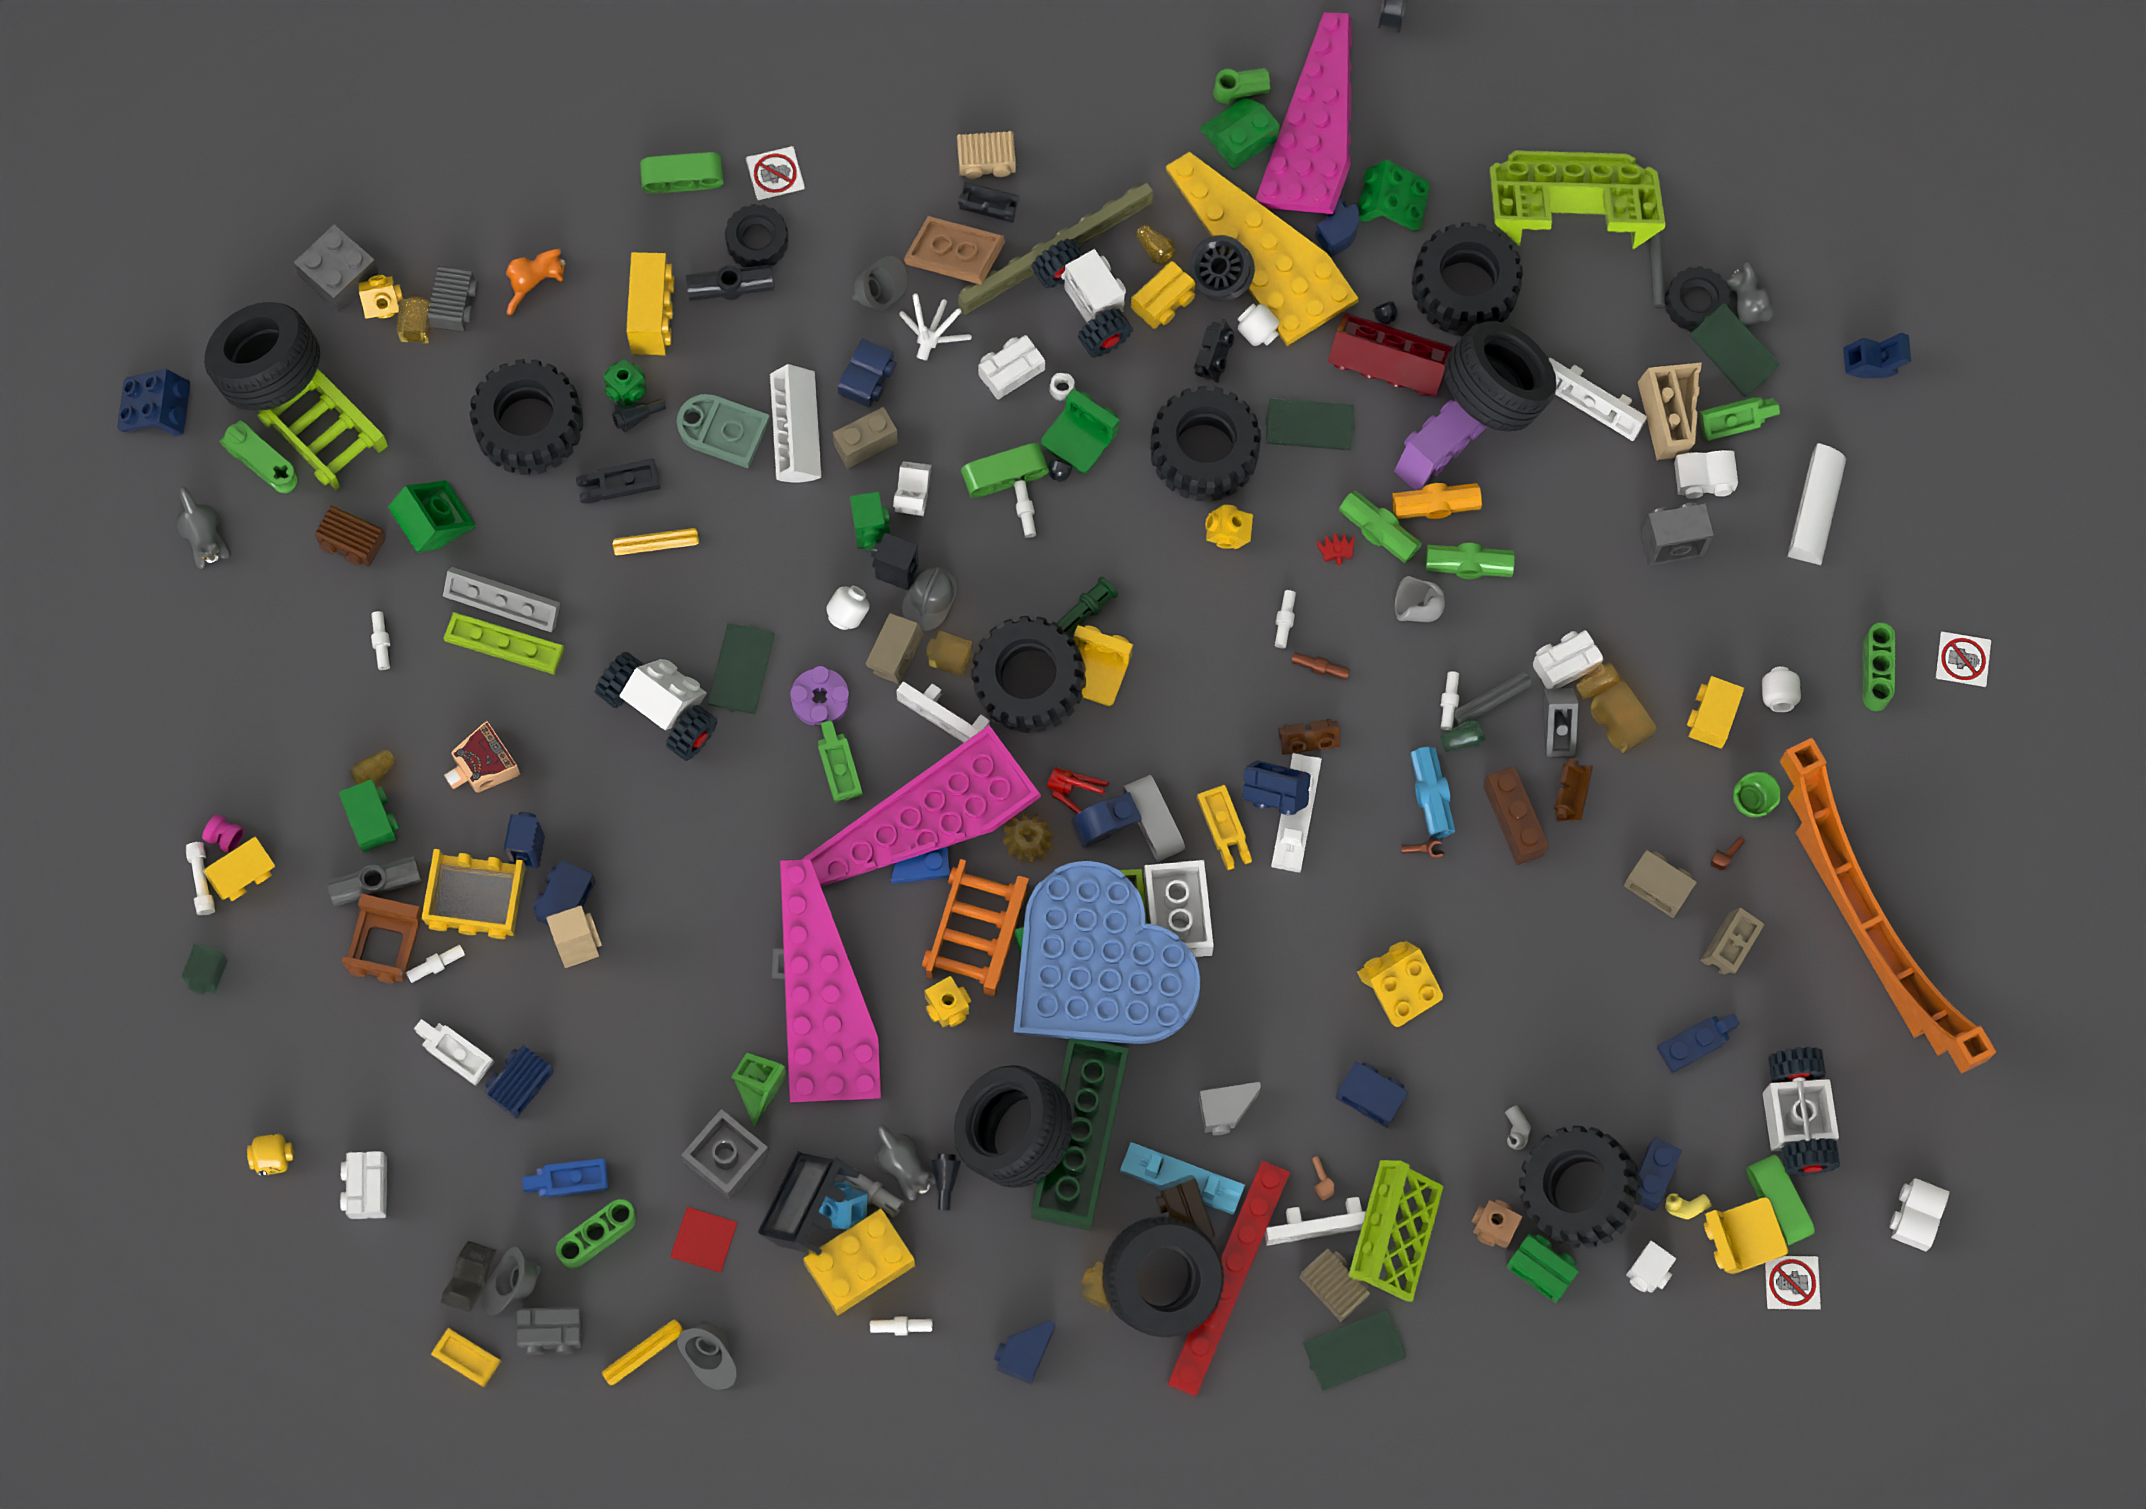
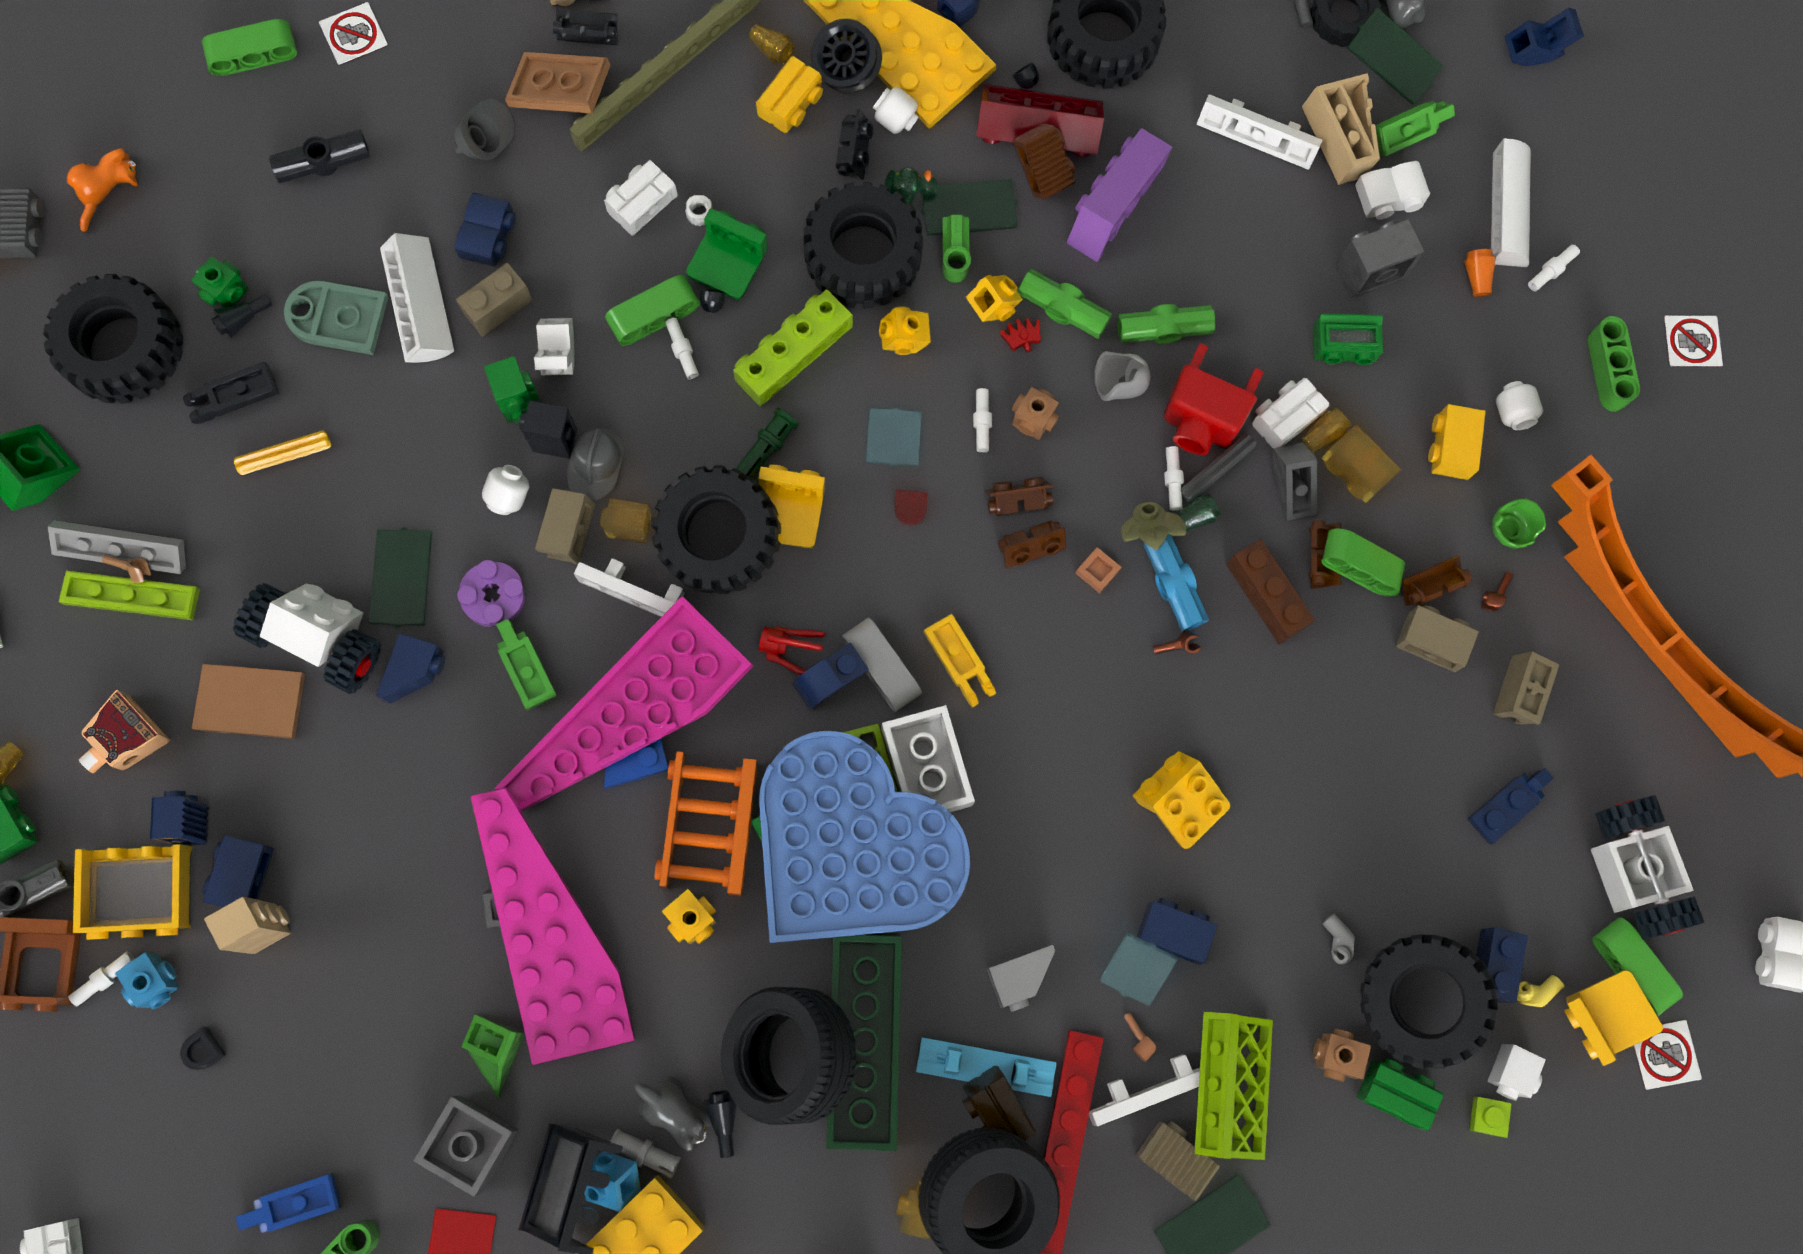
camera: 15 degrees left, 5 degrees up
(454, 1051) = (137, 1079): white hinge -> none
(476, 971) = (147, 981): none -> dark azure brick
(508, 1038) = (201, 1050): none -> black tile
(516, 619) = (136, 567): none -> medium nougat hand
(518, 1081) = (216, 1101): dark blue brick -> none
(593, 752) = (248, 701): none -> medium nougat tile
(650, 303) = (231, 192): yellow brick -> none
(739, 747) = (410, 668): none -> dark blue slope
(751, 216) = (335, 80): black tyre -> none
(929, 337) = (547, 180): white plant -> none
(1037, 832) = (740, 721): clear yellow gear -> none
(1091, 290) = (712, 100): brick -> none
(1125, 524) = (792, 347): none -> lime brick
(1202, 620) = (893, 437): none -> clear light blue piece
(1206, 684) = (910, 506): none -> clear red tile
(1257, 393) = (909, 181): none -> clear green animal
(1276, 787) = (1009, 607): dark blue brick -> none
(1289, 458) = (955, 247): none -> bright green piece
(1294, 828) = (1033, 630): white hinge -> none
(1316, 511) = (994, 298): none -> yellow brick
(1317, 692) = (1007, 496): none -> reddish brown hinge
(1320, 666) = (1029, 464): copper bar -> none
(1330, 628) = (1035, 413): none -> medium nougat brick
(1331, 1118) = (1138, 969): none -> clear light blue piece
(1364, 770) = (1098, 570): none -> nougat tile
(1385, 394) = (1045, 160): none -> reddish brown brick
(1420, 737) = (1152, 525): none -> olive plate
(1436, 501) = (1119, 266): light orange piece -> none
(1491, 642) = (1208, 407): none -> red piece
(1500, 376) = (1164, 120): black tyre -> none
(1605, 803) = (1363, 562): none -> bright green beam
(1621, 1303) = (1490, 1117): none -> lime plate
(1635, 602) = (1348, 338): none -> green window
(1668, 832) = (1430, 583): none -> reddish brown hinge
(1773, 561) = (1480, 270): none -> orange cone
(1844, 570) = (1553, 268): none -> white bar

